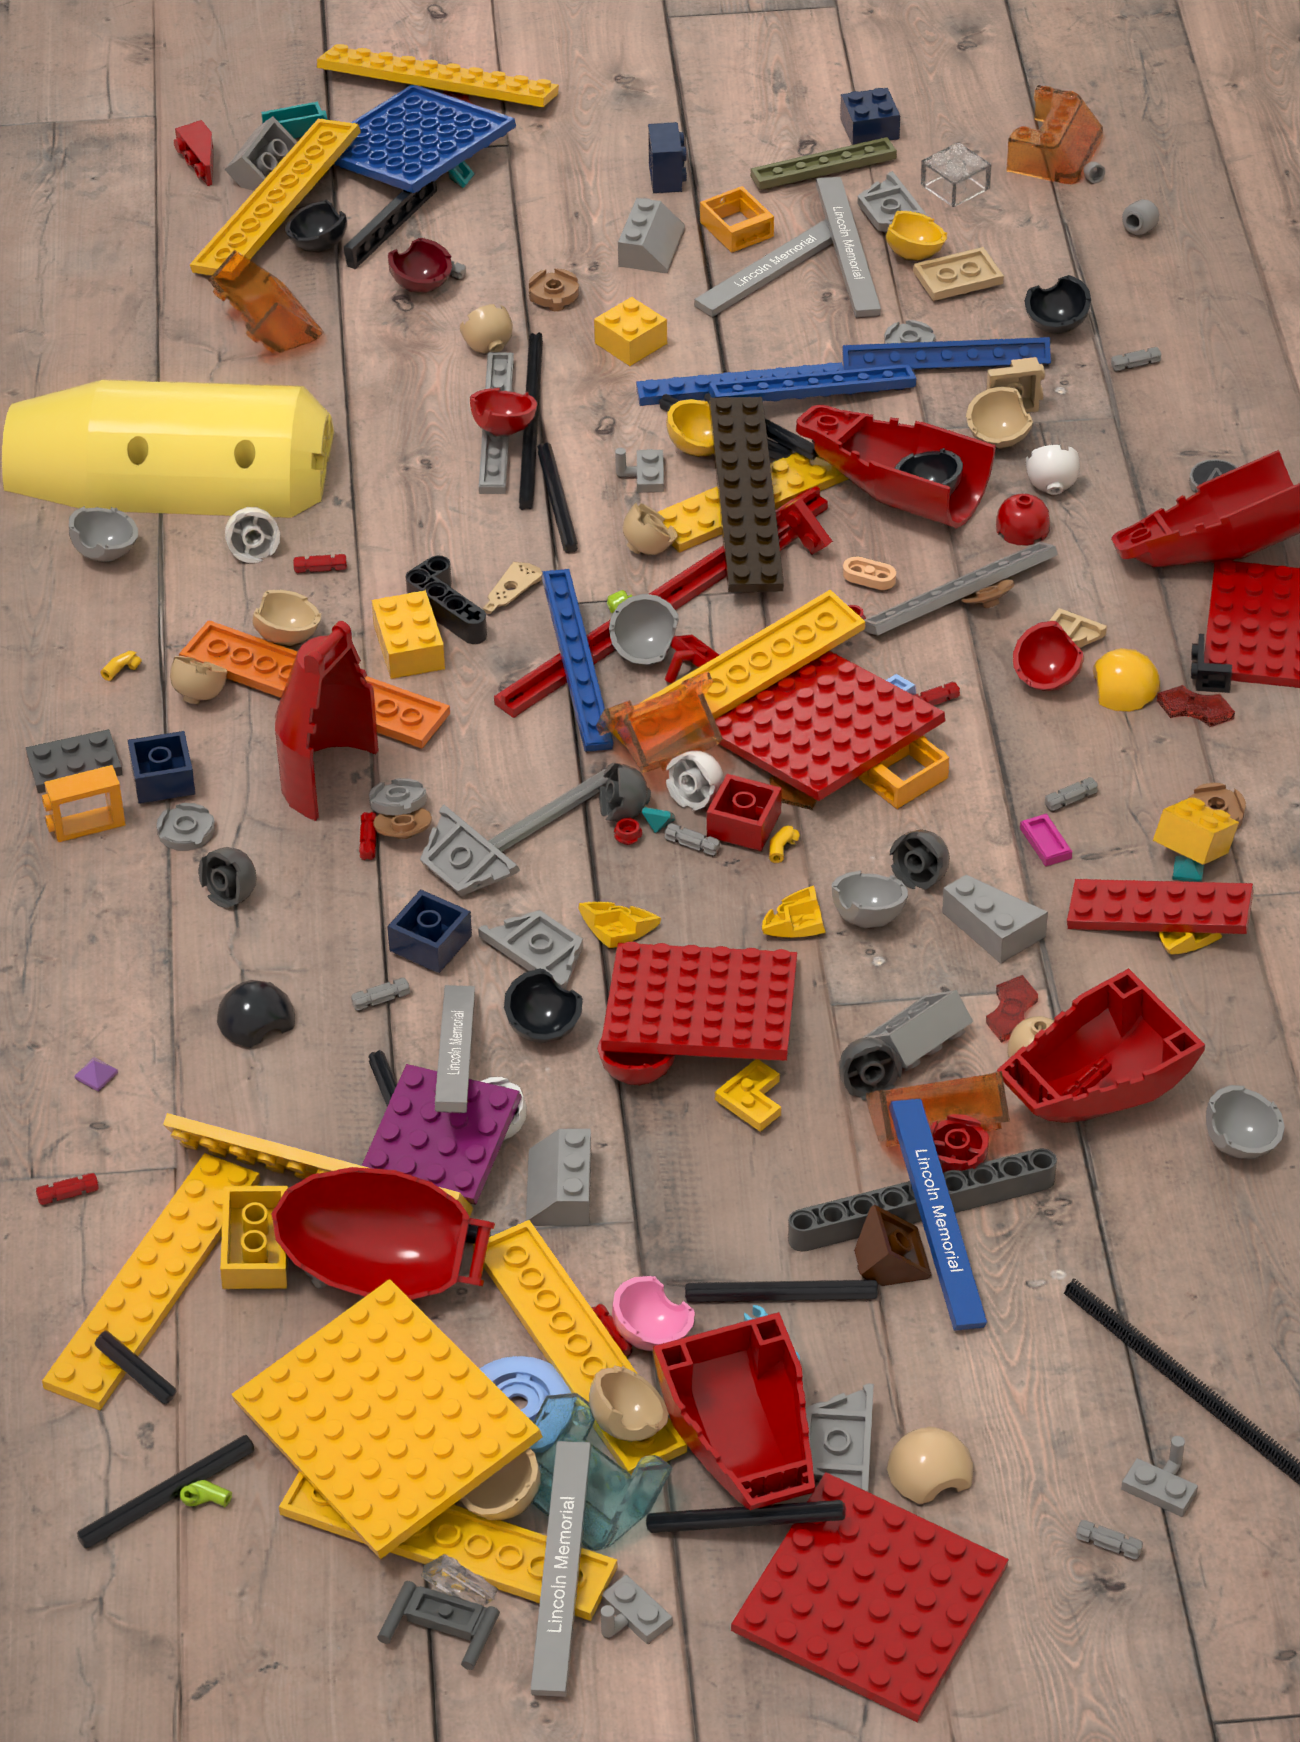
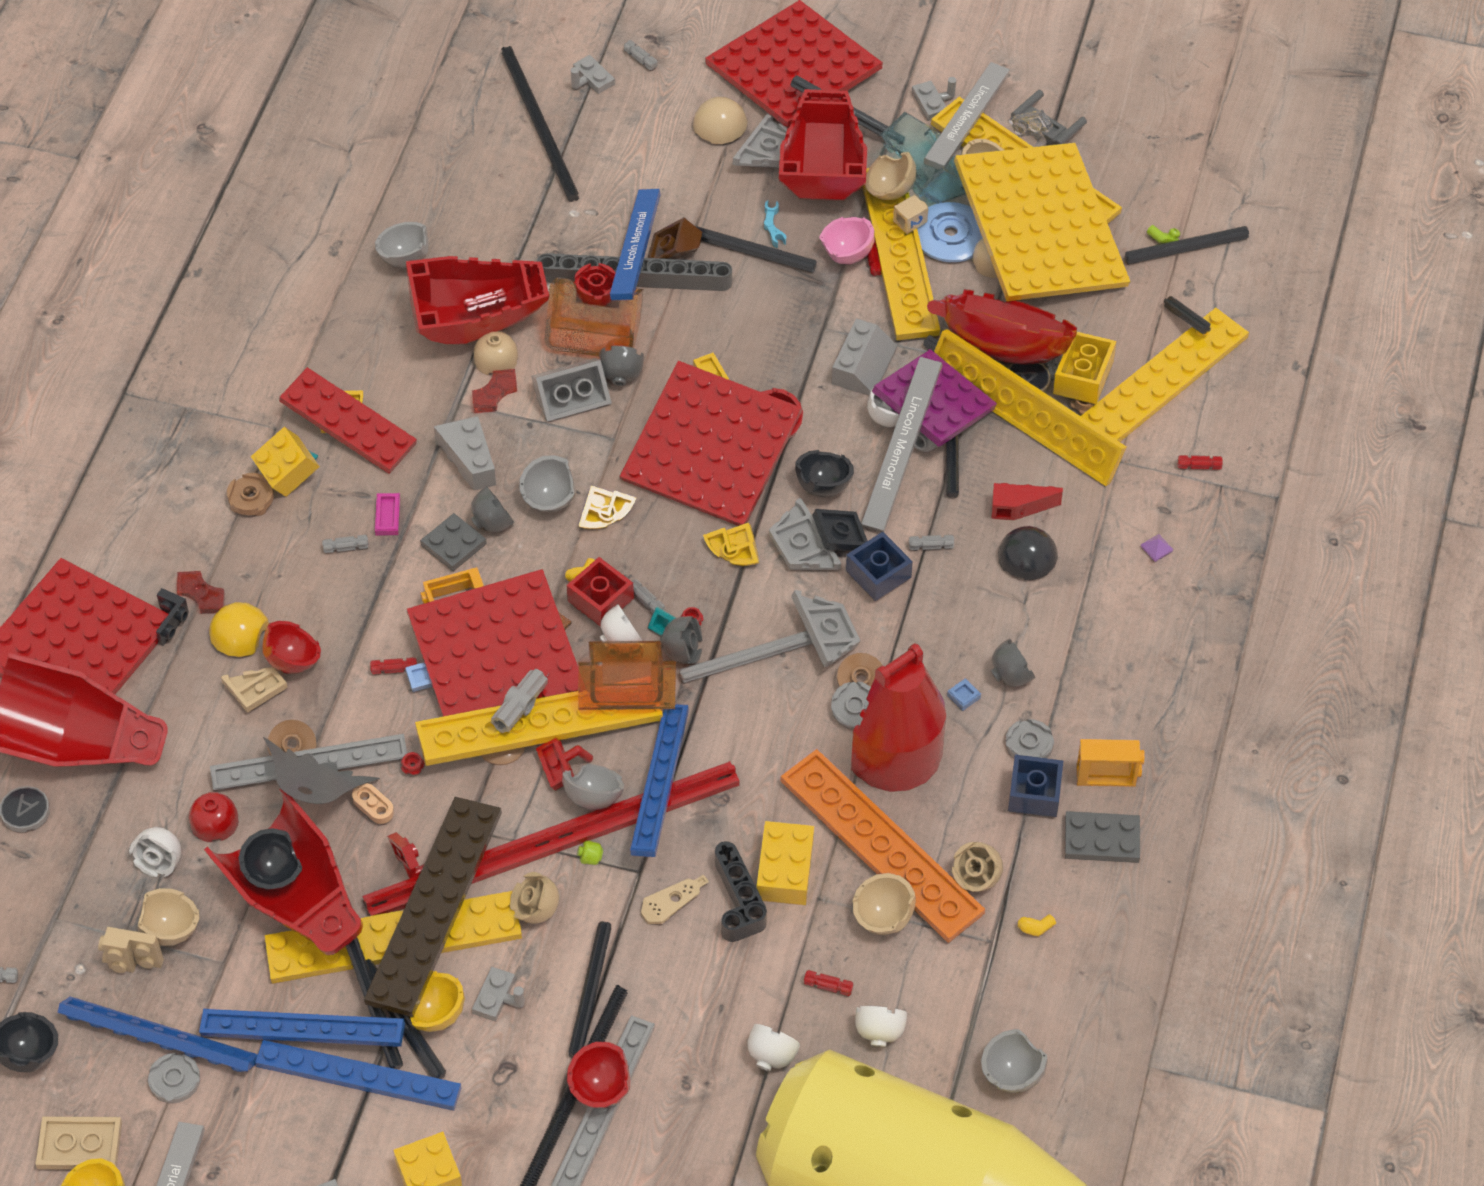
camera: 160 degrees left, 10 degrees up
(278, 850) = (964, 694): none -> medium blue tile
(285, 1064) = (1019, 501): none -> red slope
(351, 490) = (771, 1048): none -> white cylinder
(494, 958) = (839, 529): none -> black plate
(577, 1372) = (910, 214): none -> tan brick
(764, 666) = (519, 700): none -> light grey piece
(935, 537) = (321, 779): none -> dark grey piece
(957, 828) = (453, 542): none -> dark grey plate

